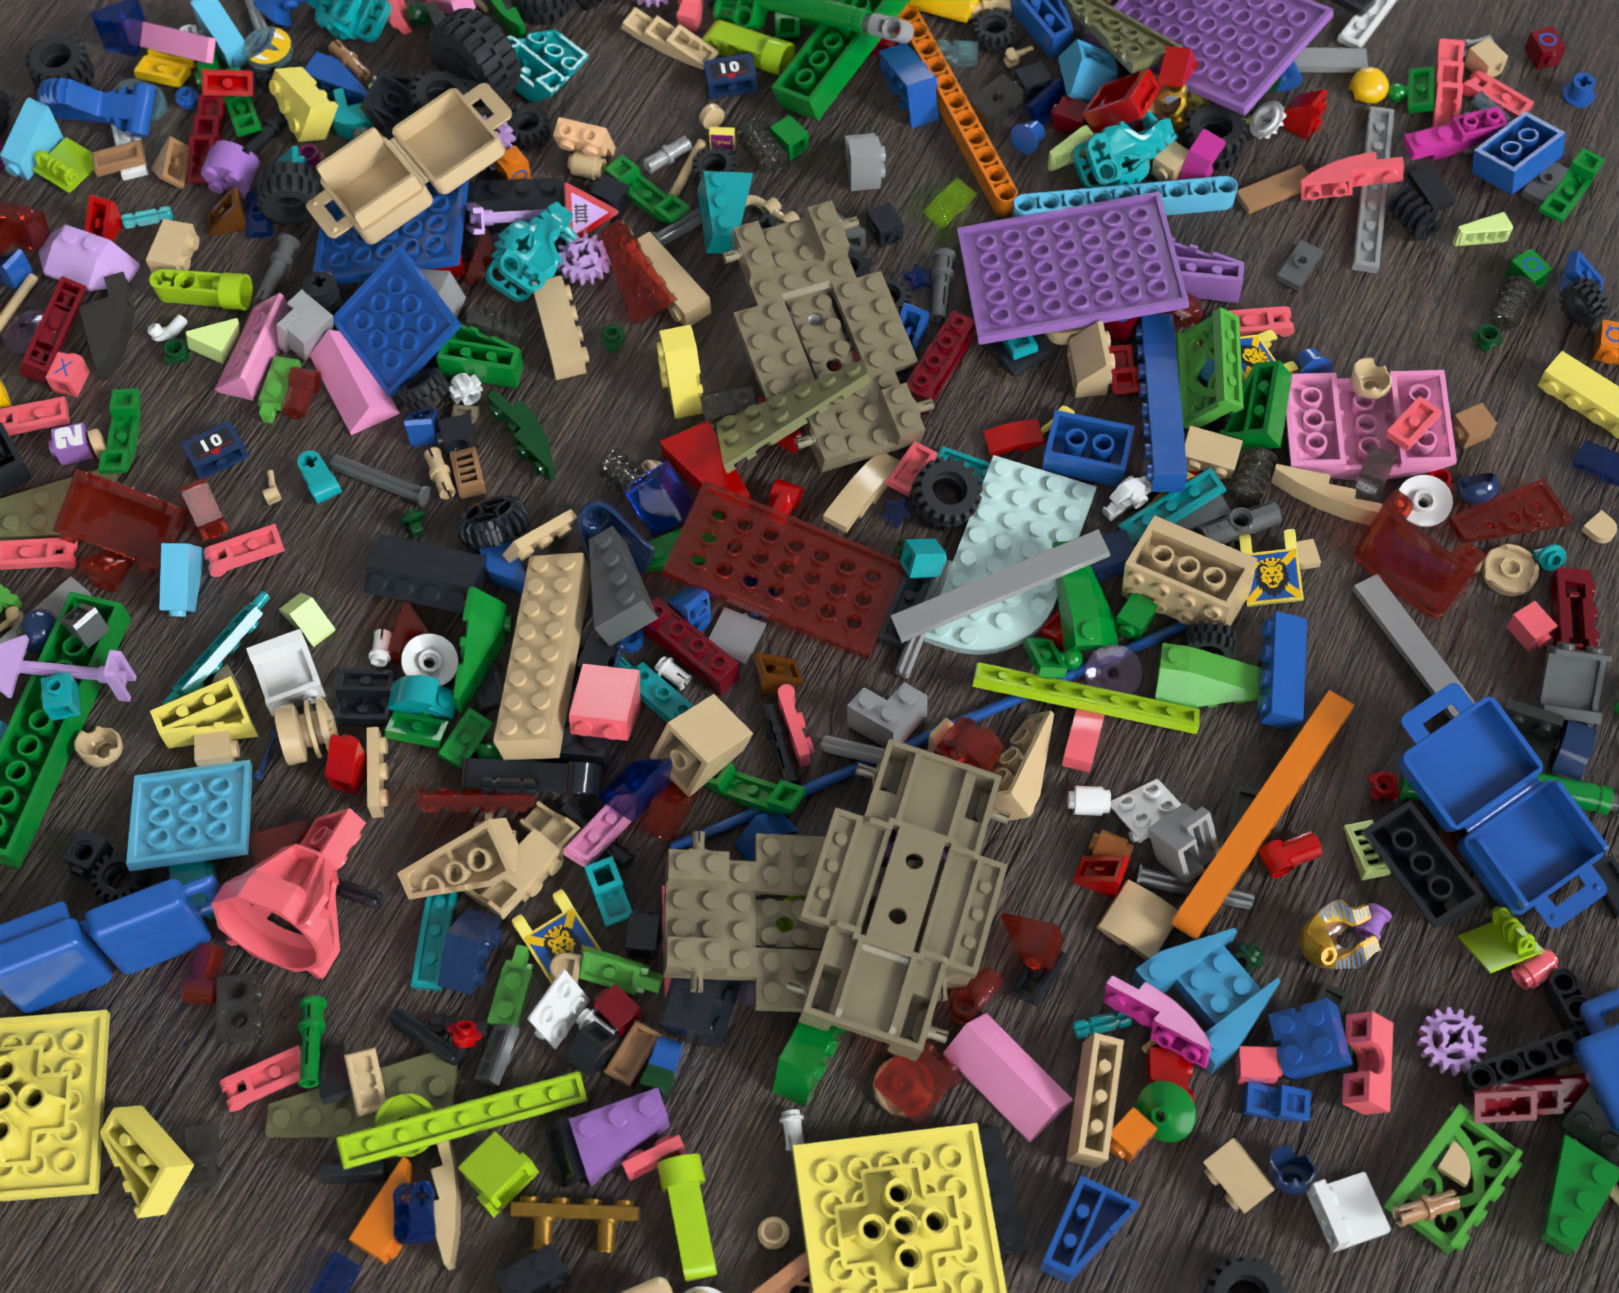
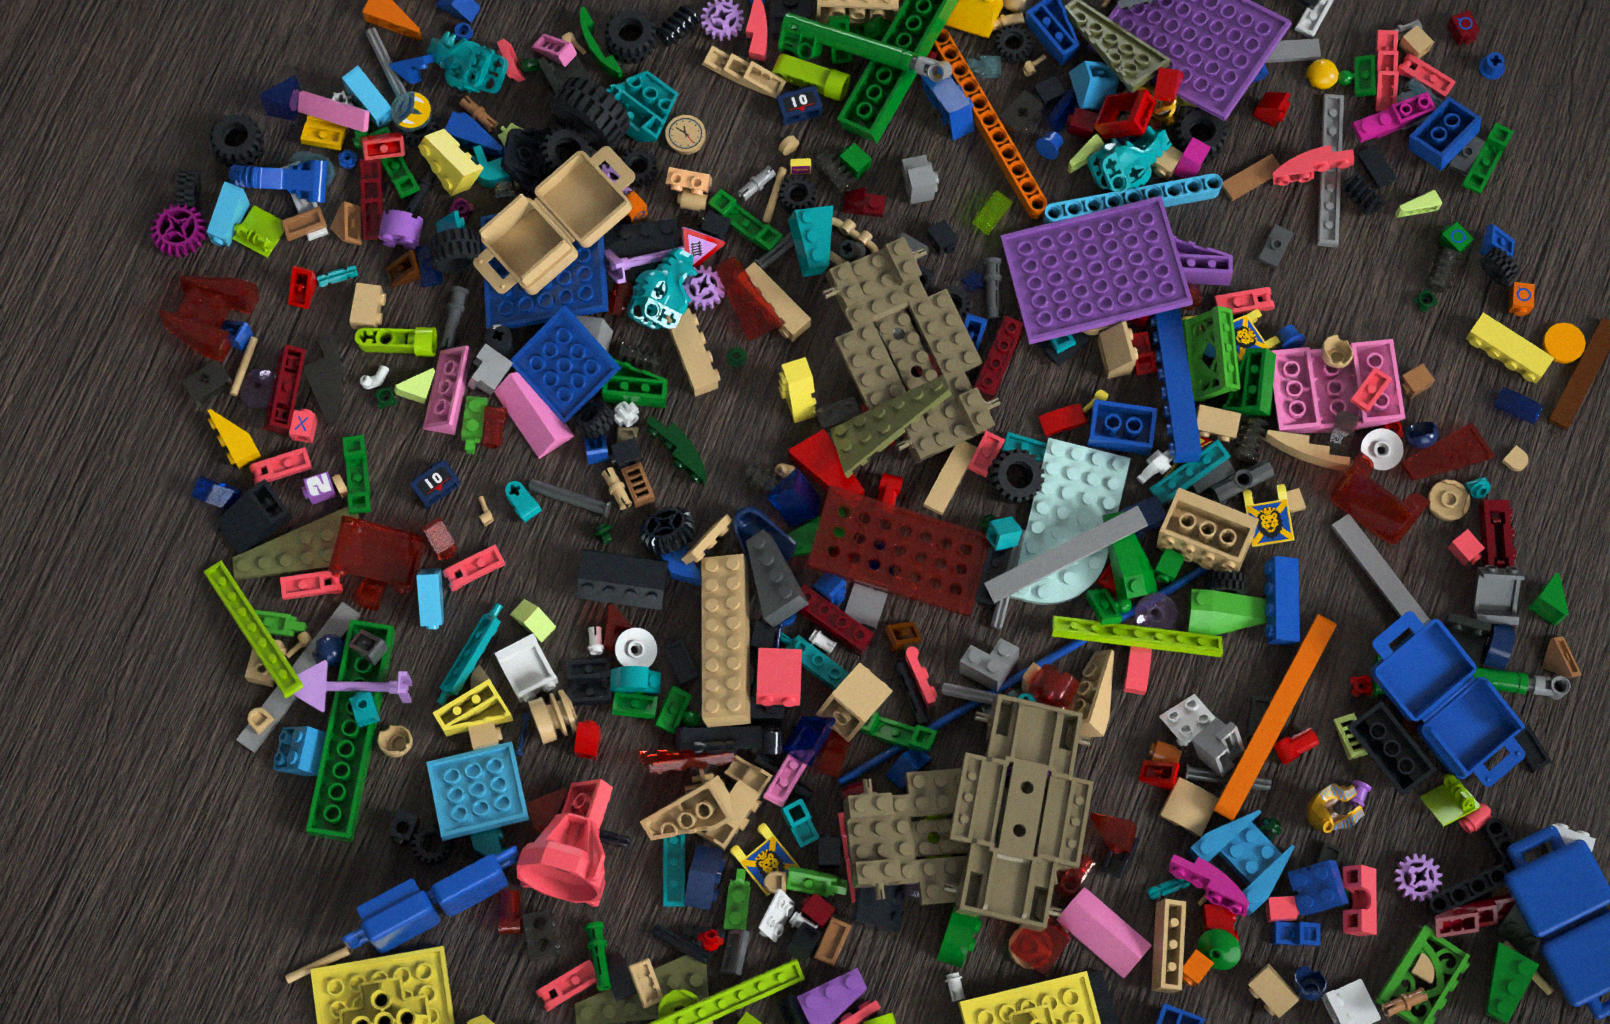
camera: 10 degrees left, 10 degrees up
(84, 258) = (293, 321): lavender wedge -> none
(376, 772) = (611, 742): tan plate -> none
(487, 633) = (676, 624): green wedge -> none
(590, 99) = (685, 134): none -> tan tile
(662, 1066) = (856, 949): leg -> none
(794, 185) = (862, 203): none -> dark red slope
(897, 511) = (978, 491): clear blue piece -> none
(1089, 800) = (1145, 717): white brick -> none
(1267, 110) = (1236, 121): white gear -> none

